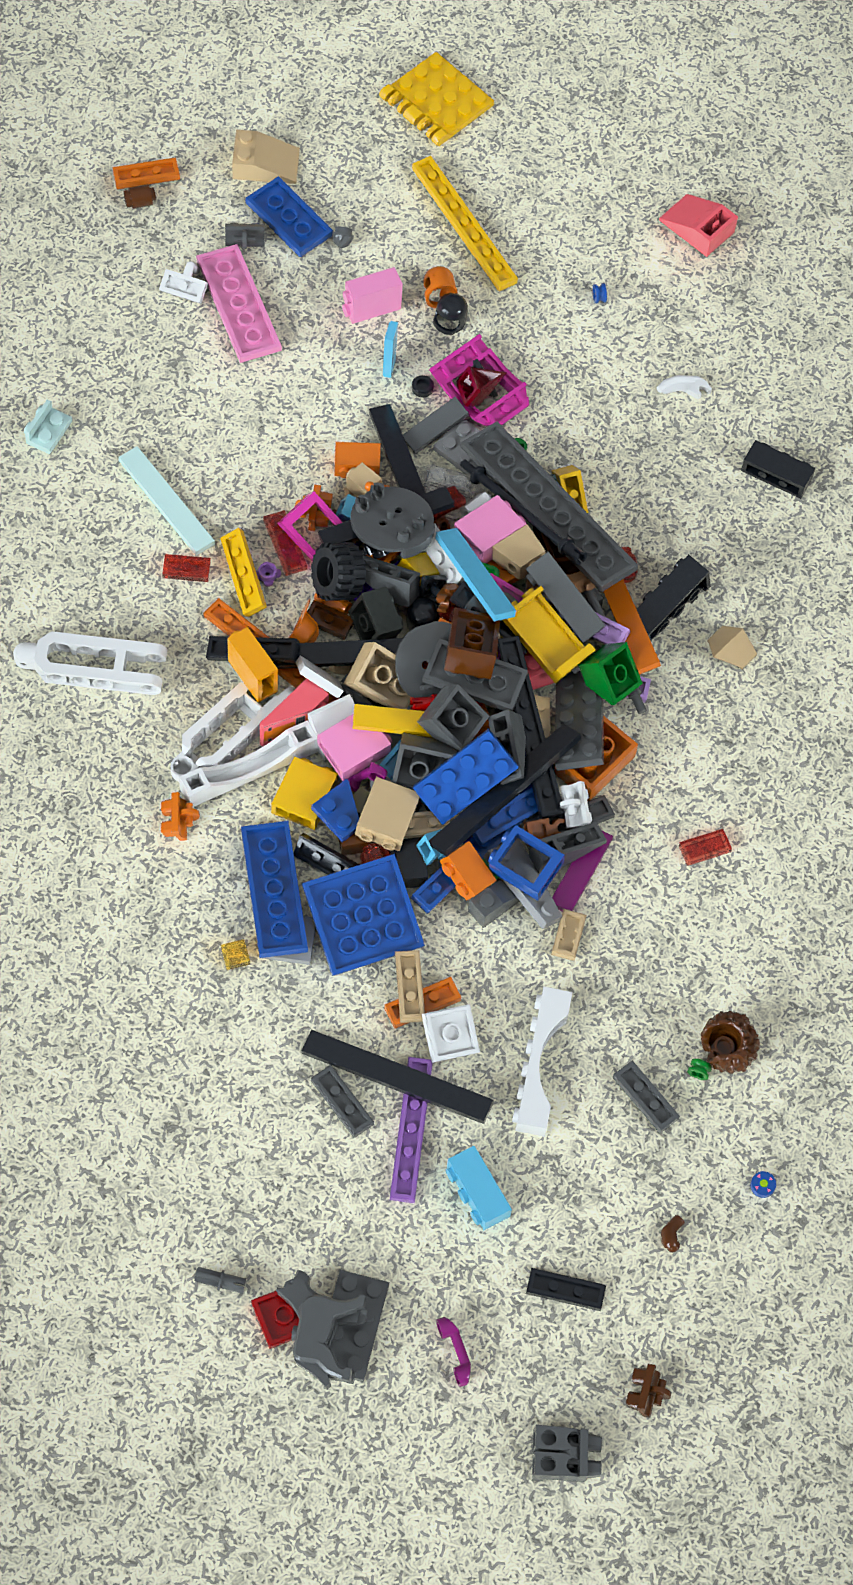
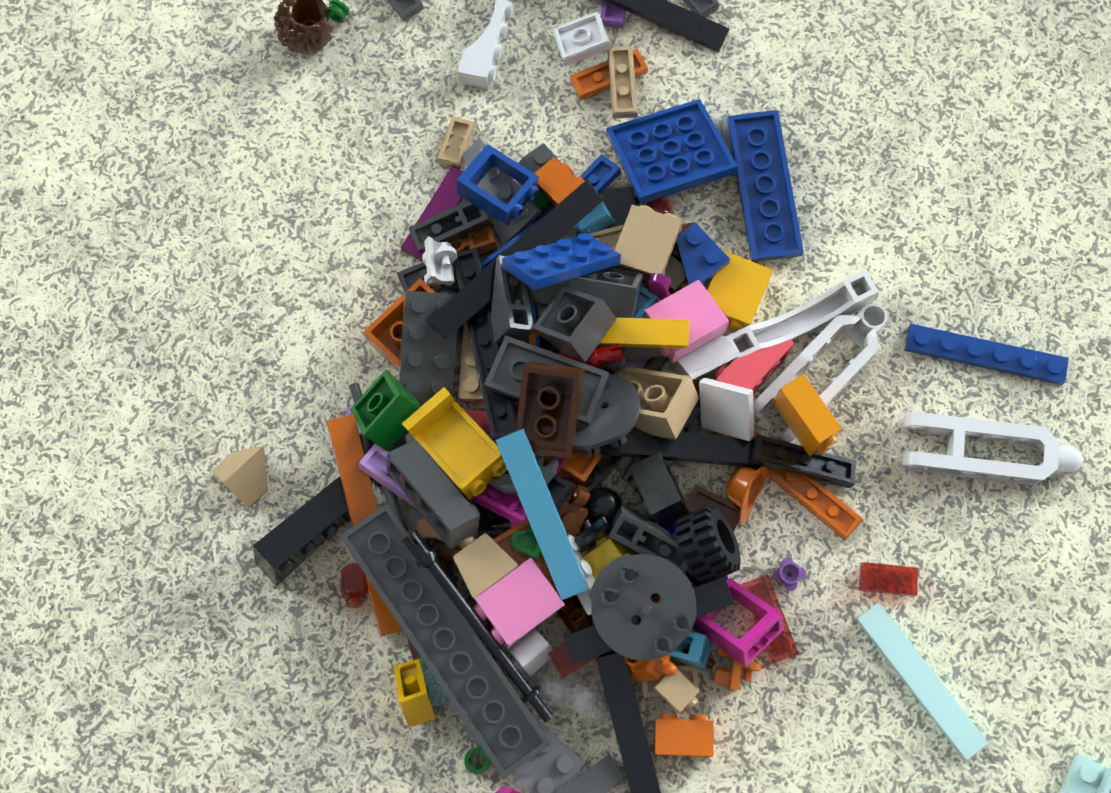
camera: 170 degrees left, 10 degrees up
(82, 744) = (986, 354): none -> blue plate
(181, 815) = (871, 258): orange hips -> none
(235, 954) = (801, 121): clear yellow plate -> none
(243, 572) = (819, 572): yellow plate -> none
(321, 855) = (706, 216): black tile -> none
(705, 847) = (302, 239): clear red tile -> none
(778, 469) = (144, 726): black brick -> none

